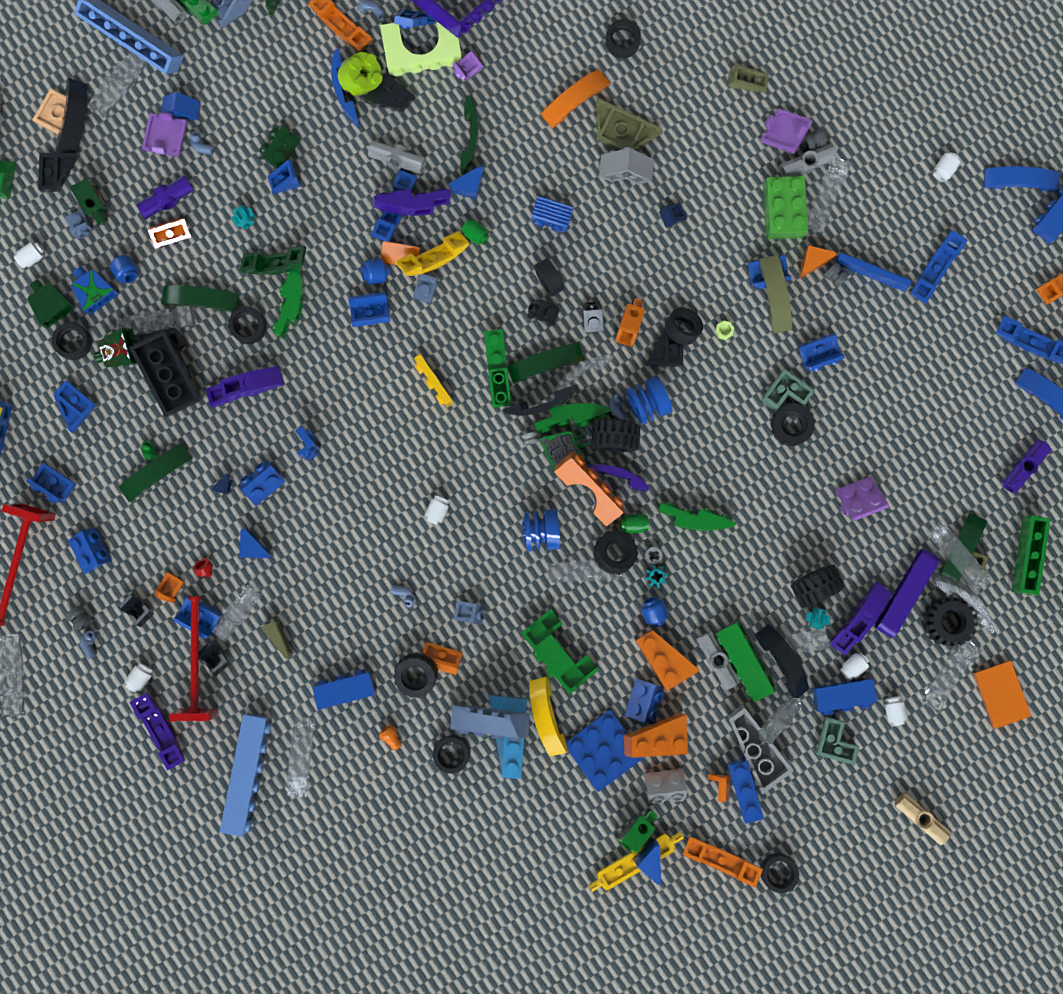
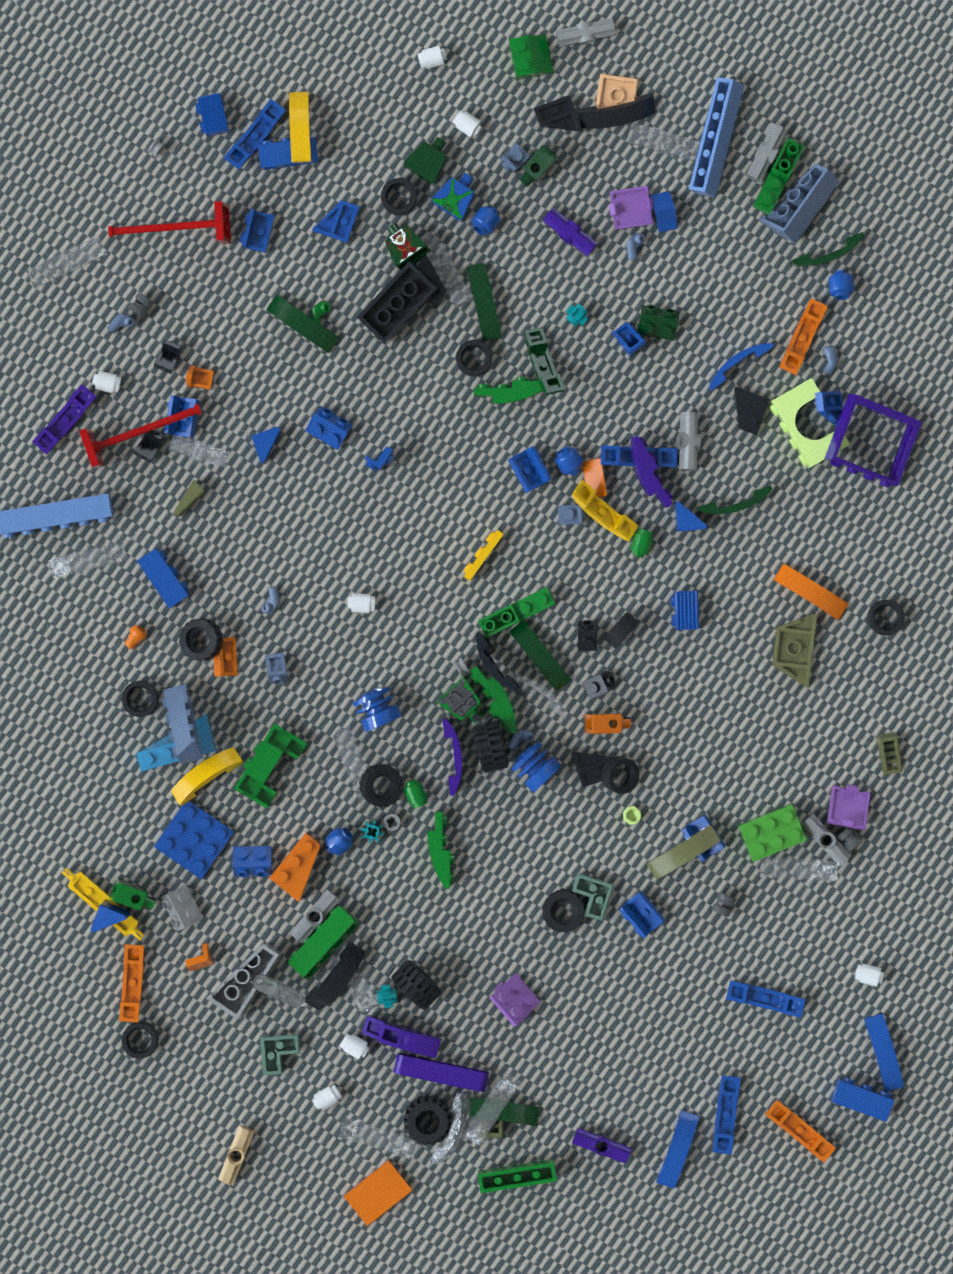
camera: 70 degrees right, 5 degrees up
(89, 550) = (207, 290): blue bracket -> none
(169, 232) = (538, 247): slope -> none
(203, 568) = (229, 403): red tile -> none
(223, 485) = (313, 394): dark blue slope -> none
(244, 385) = (414, 378): dark purple slope -> none
(360, 74) = (755, 376): lime brick -> none
(467, 66) = (803, 476): medium lavender bracket -> none
(575, 471) = (442, 720): orange arch -> none
(626, 165) = (757, 665): light grey brick -> none
(659, 739) = (222, 886): orange wedge -> none
(672, 214) = (728, 726): dark blue slope -> none
(745, 790) = (203, 982): blue brick -> none
(814, 259) = (731, 877): orange slope -> none
(844, 696) = (323, 1045): blue brick -> none
(873, 272) = (739, 937): blue tile -> none

